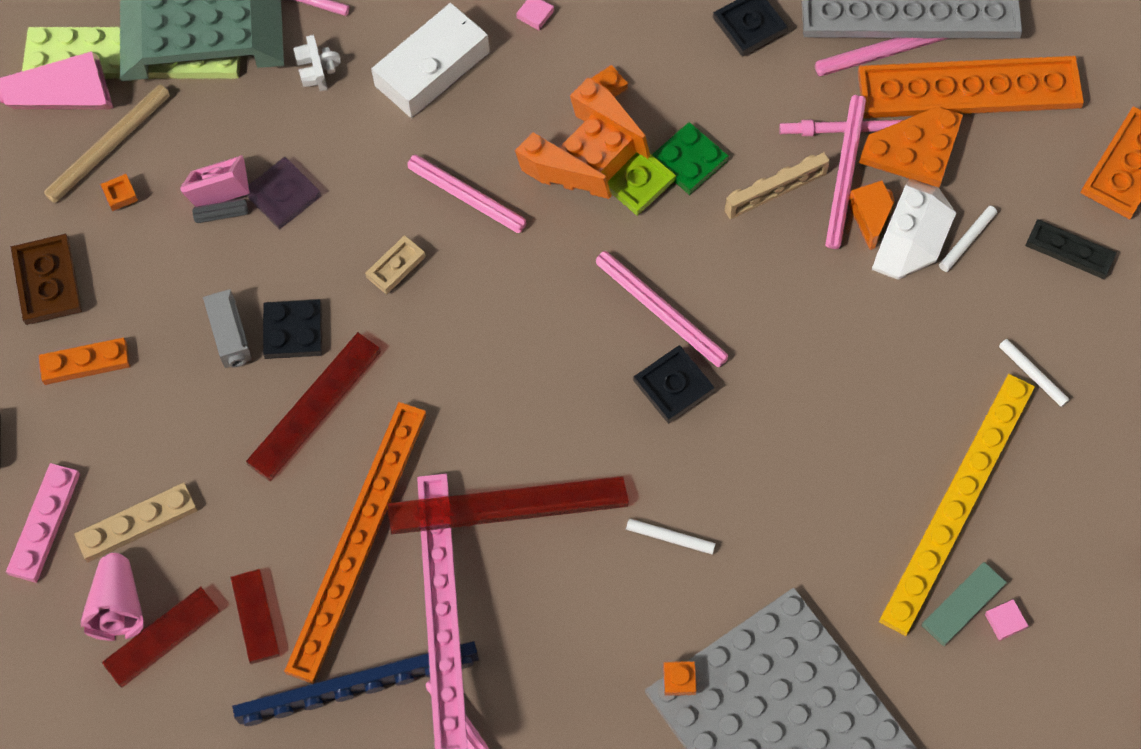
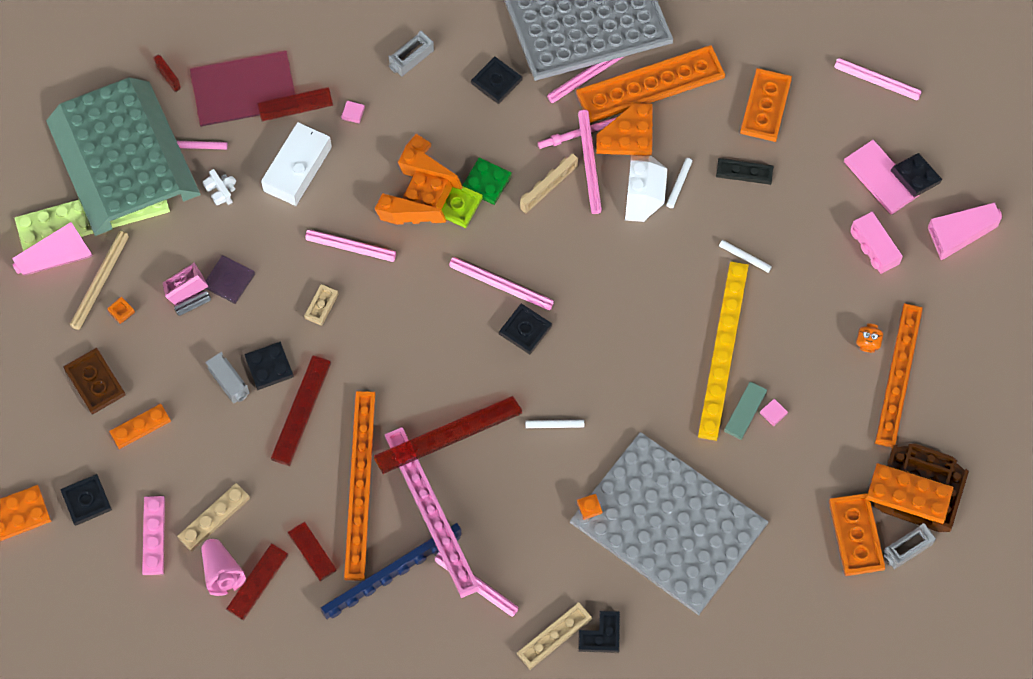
camera: 20 degrees left, 0 degrees up
(871, 210) = (613, 181): orange slope -> none

